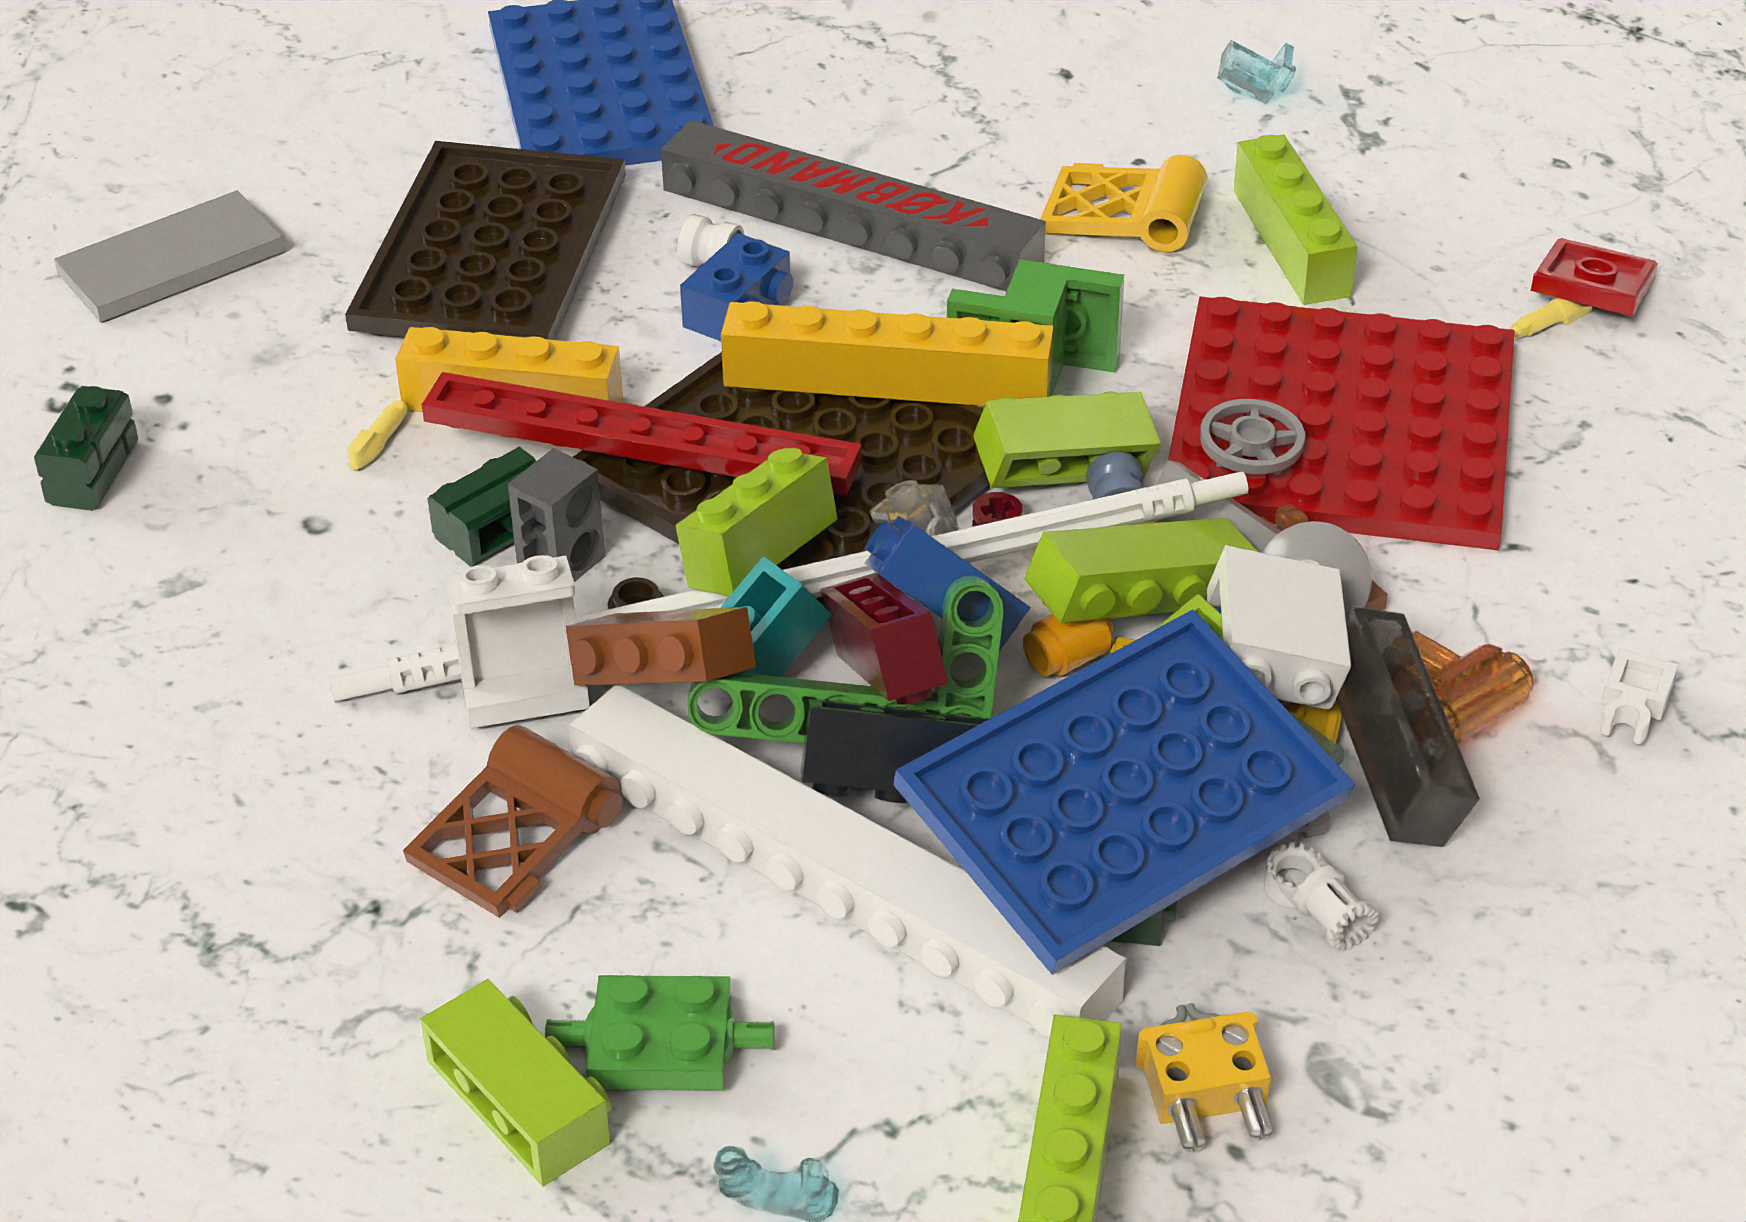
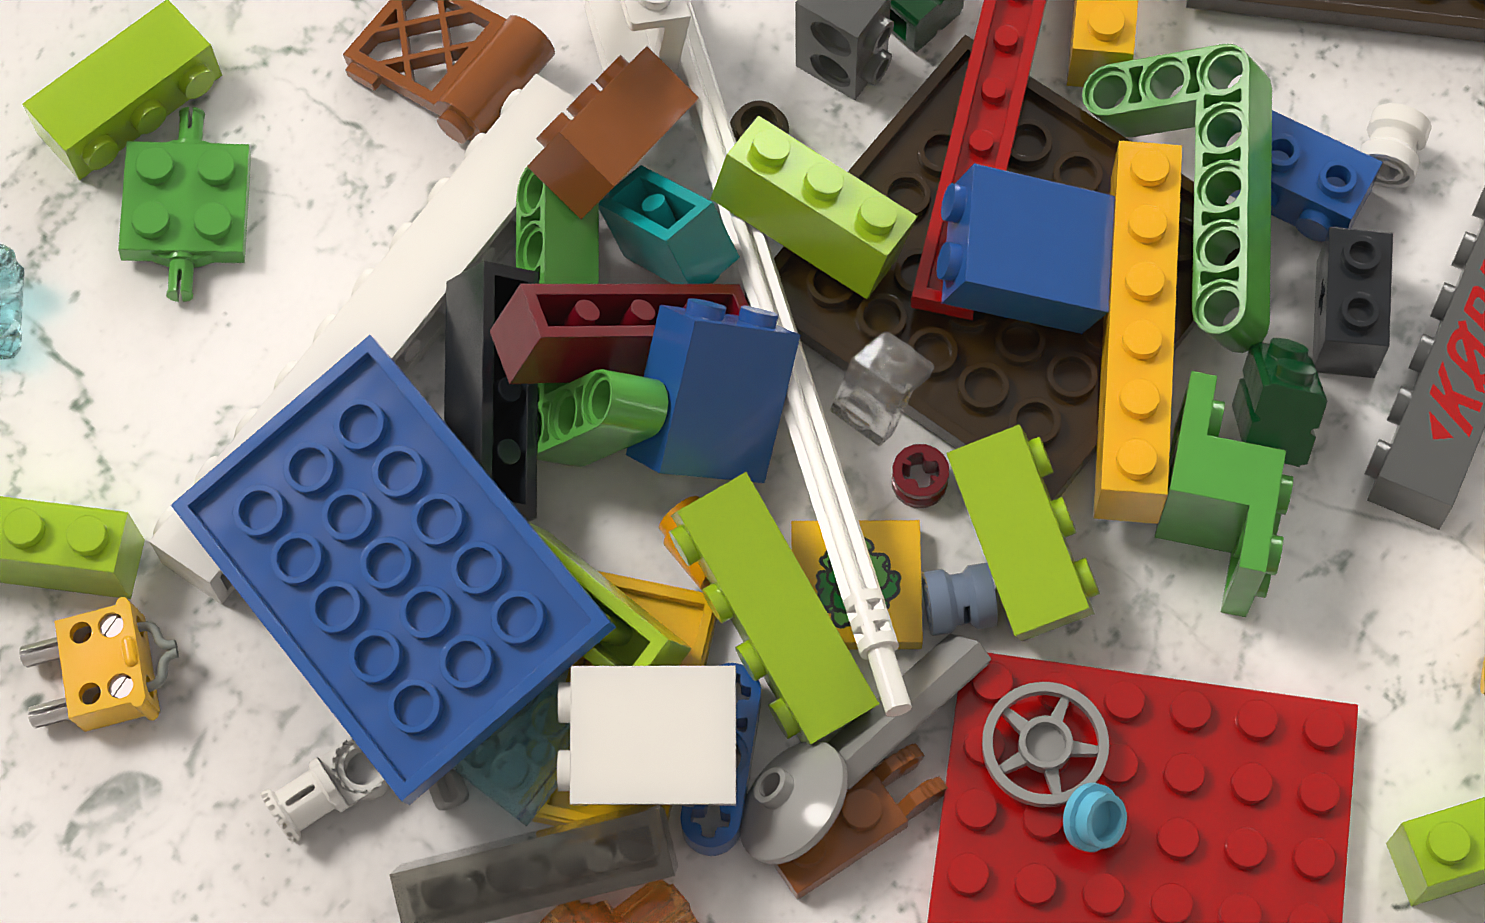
camera: 90 degrees right, 25 degrees up
(748, 279) = (1219, 170): none -> bright green beam
(813, 399) = (1027, 249): none -> blue brick
(856, 269) = (1353, 302): none -> black brick
(961, 265) = (1280, 399): none -> dark green brick
(1317, 405) = (1094, 818): none -> medium azure plate

